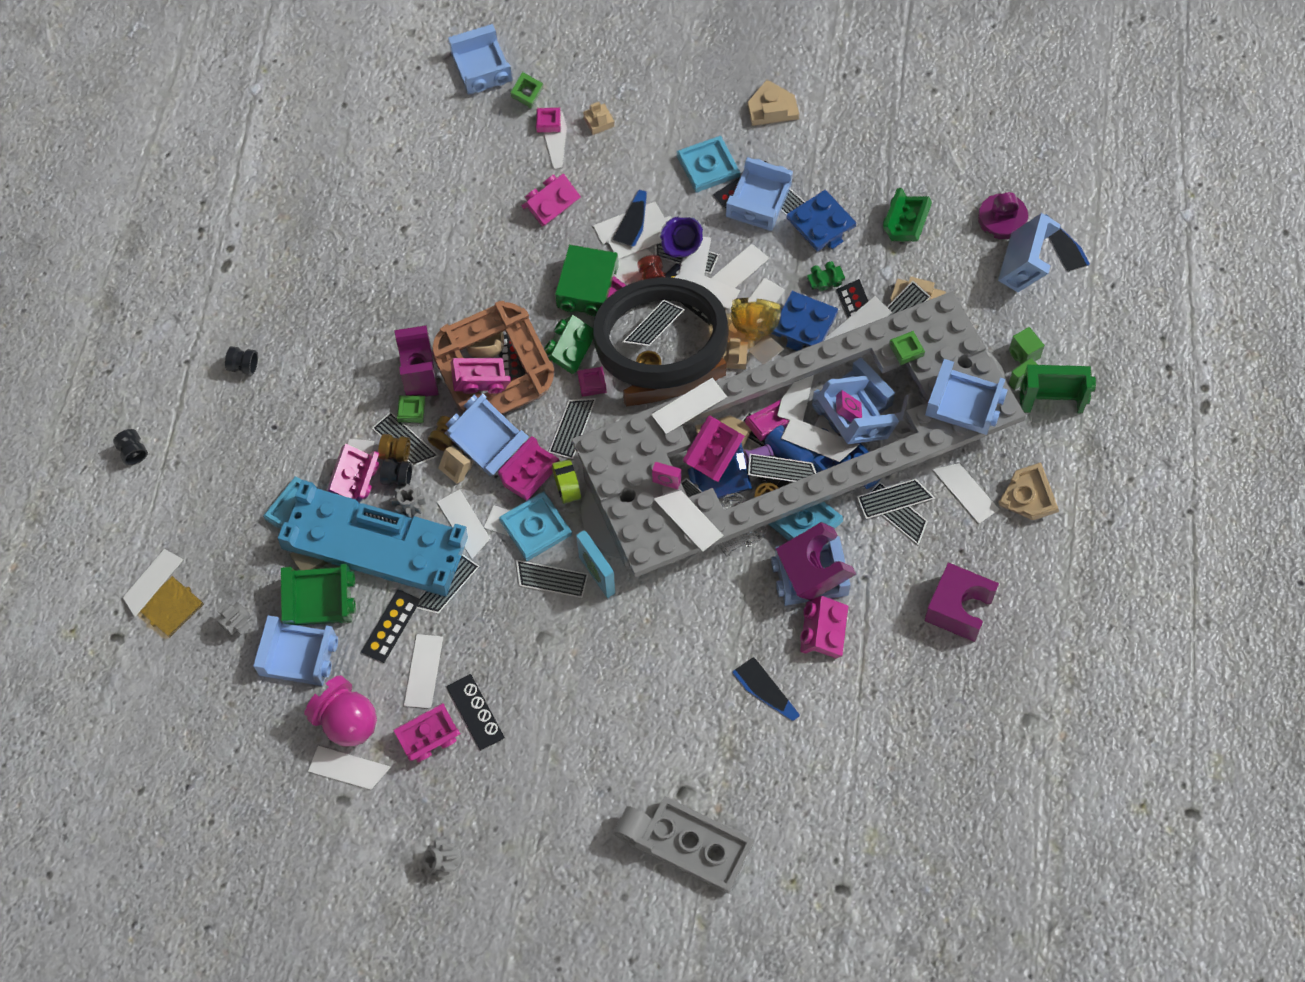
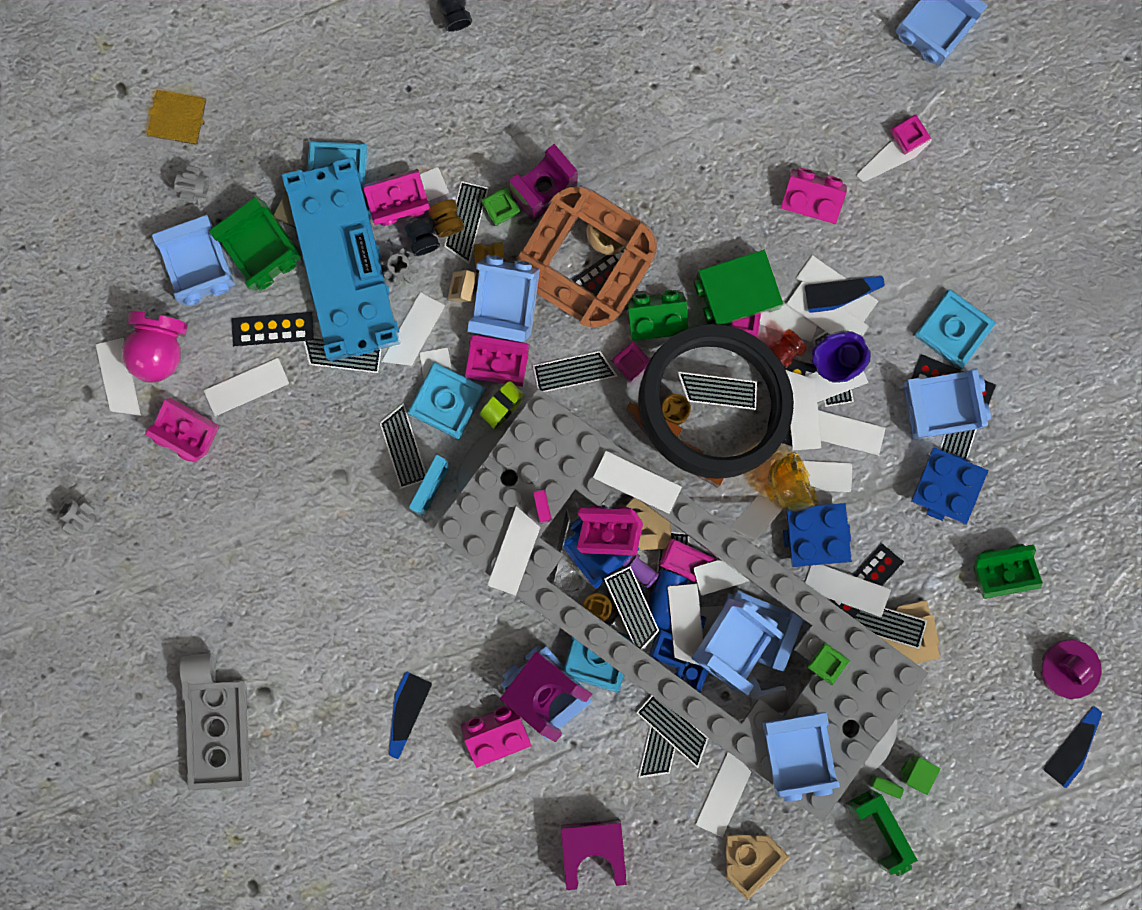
camera: 55 degrees right, 20 degrees up
(151, 581) = (190, 82): white sticker -> none
(475, 712) = (234, 458): black sticker -> none
(479, 375) = (560, 254): dark pink bracket -> none
(523, 83) = (920, 86): bright green plate -> none
(598, 118) = (942, 184): tan tile -> none
(736, 354) = (743, 486): tan tile -> none
(772, 105) = (1068, 354): tan plate -> none
(825, 278) = (881, 523): green piece -> none
(848, 406) = (733, 638): dark pink tile -> none
(1022, 261) = (1029, 719): light blue panel -> none

